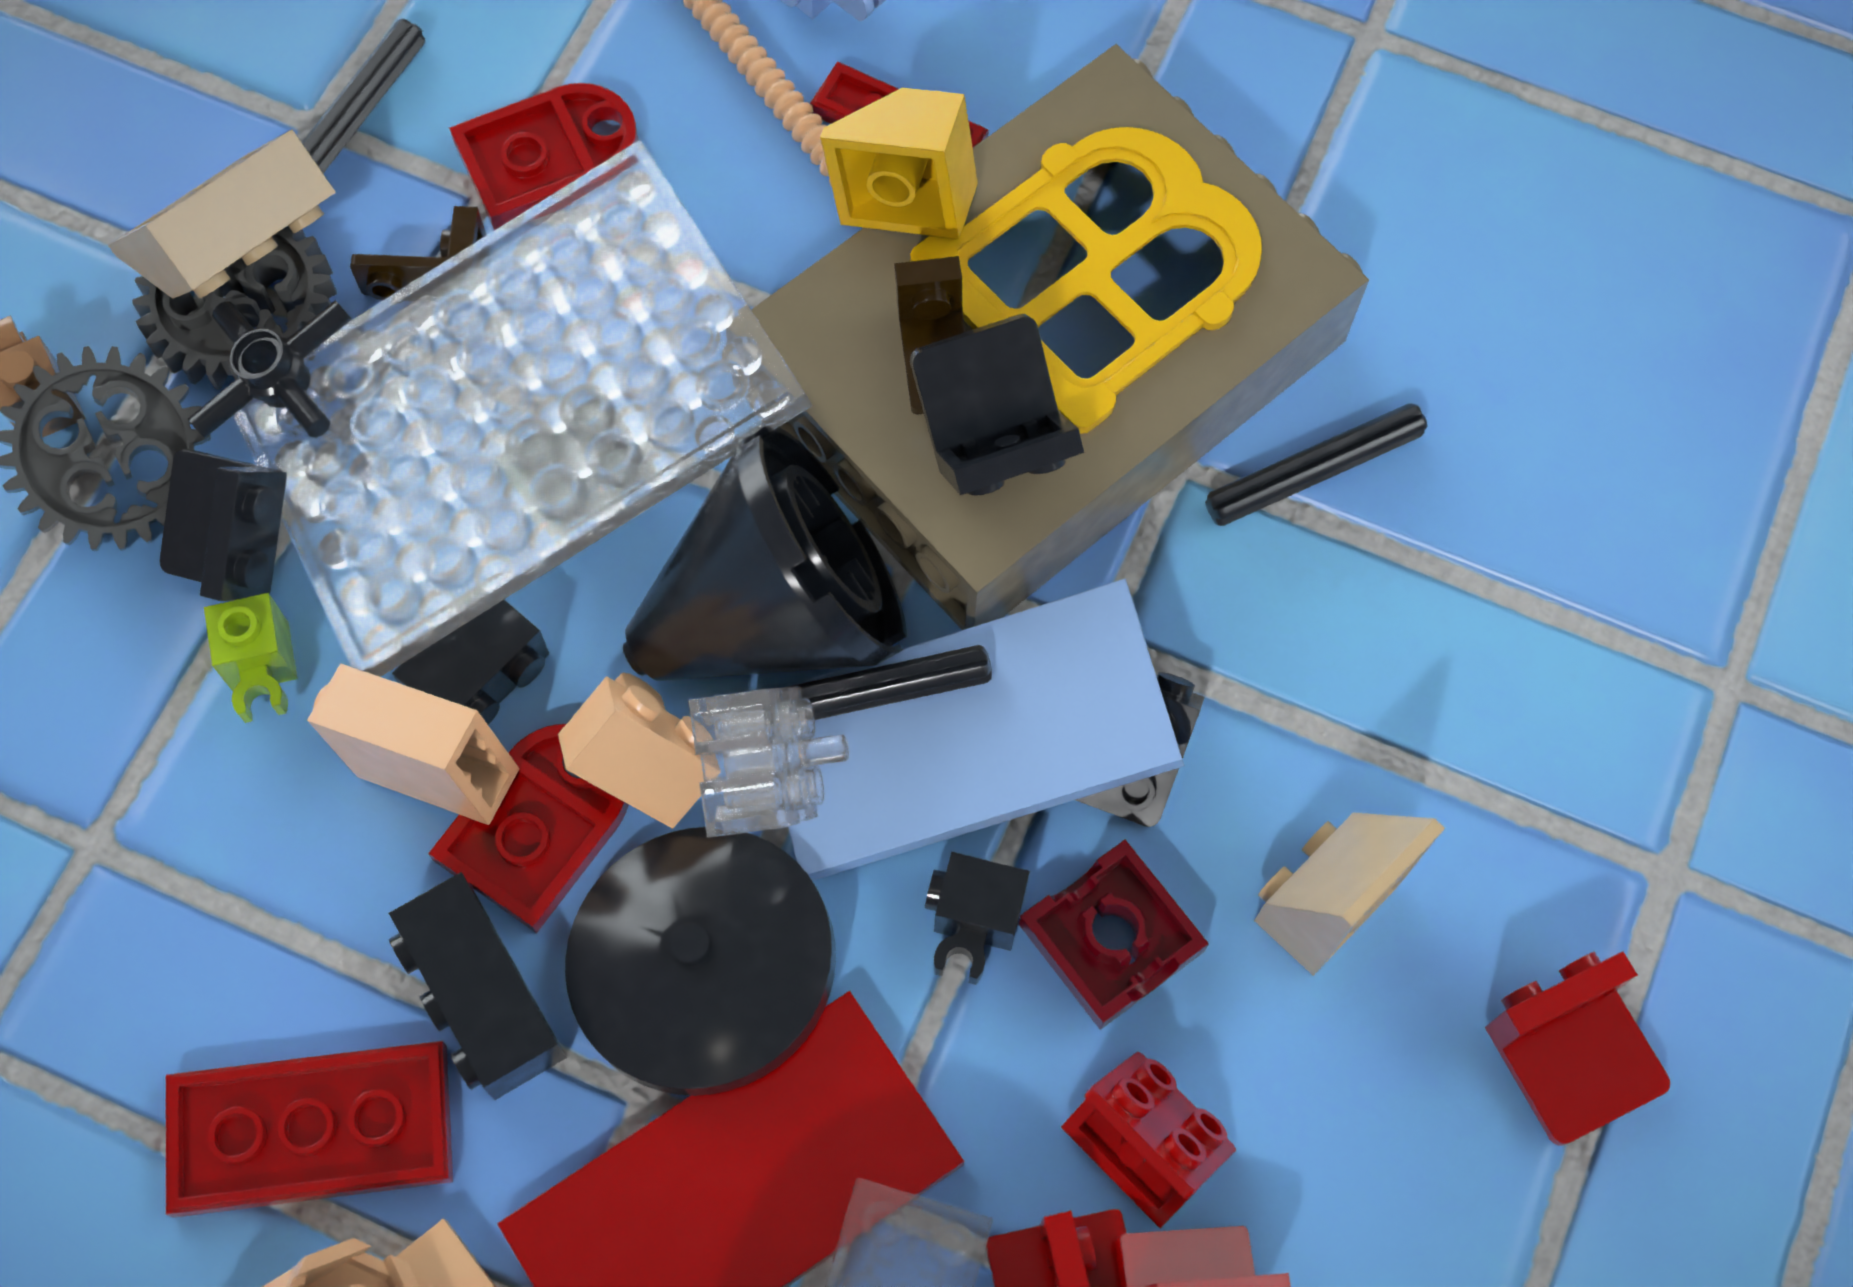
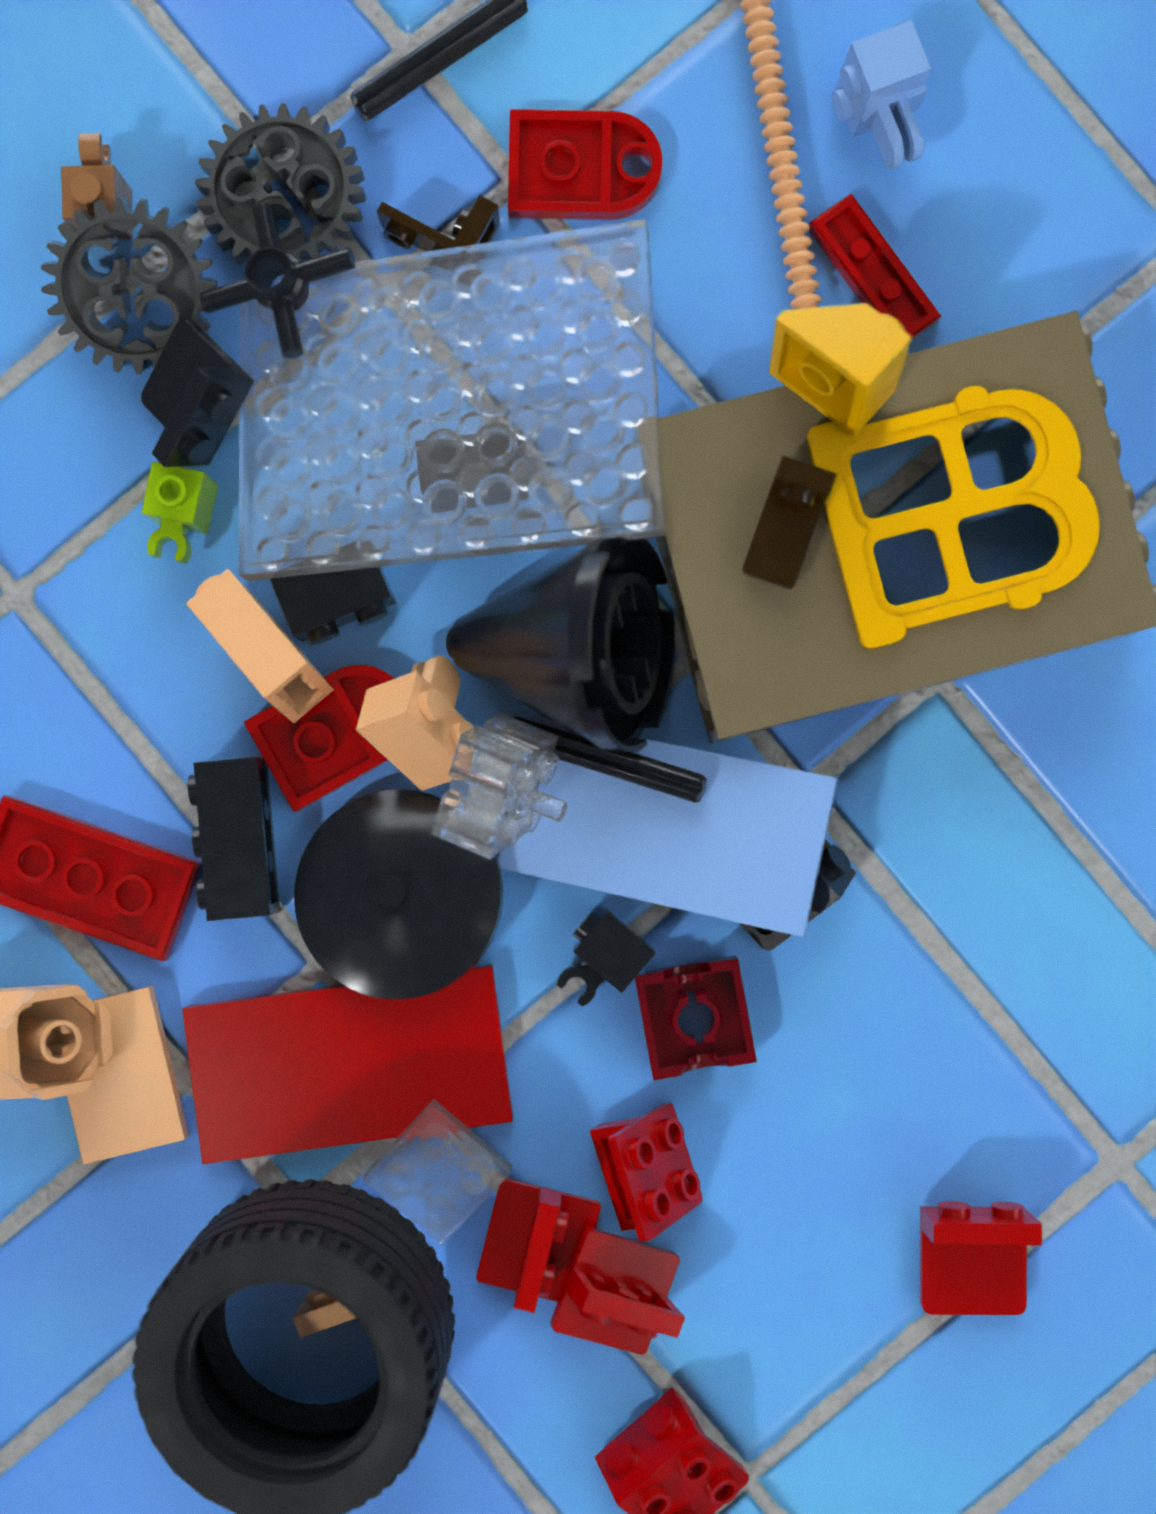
camera: 30 degrees right, 20 degrees up
(227, 219) = (294, 127): tan slope -> none
(992, 406) = (801, 609): black bracket -> none
(1315, 464) = (1043, 731): black axle -> none
(1341, 882) = (875, 1077): tan slope -> none

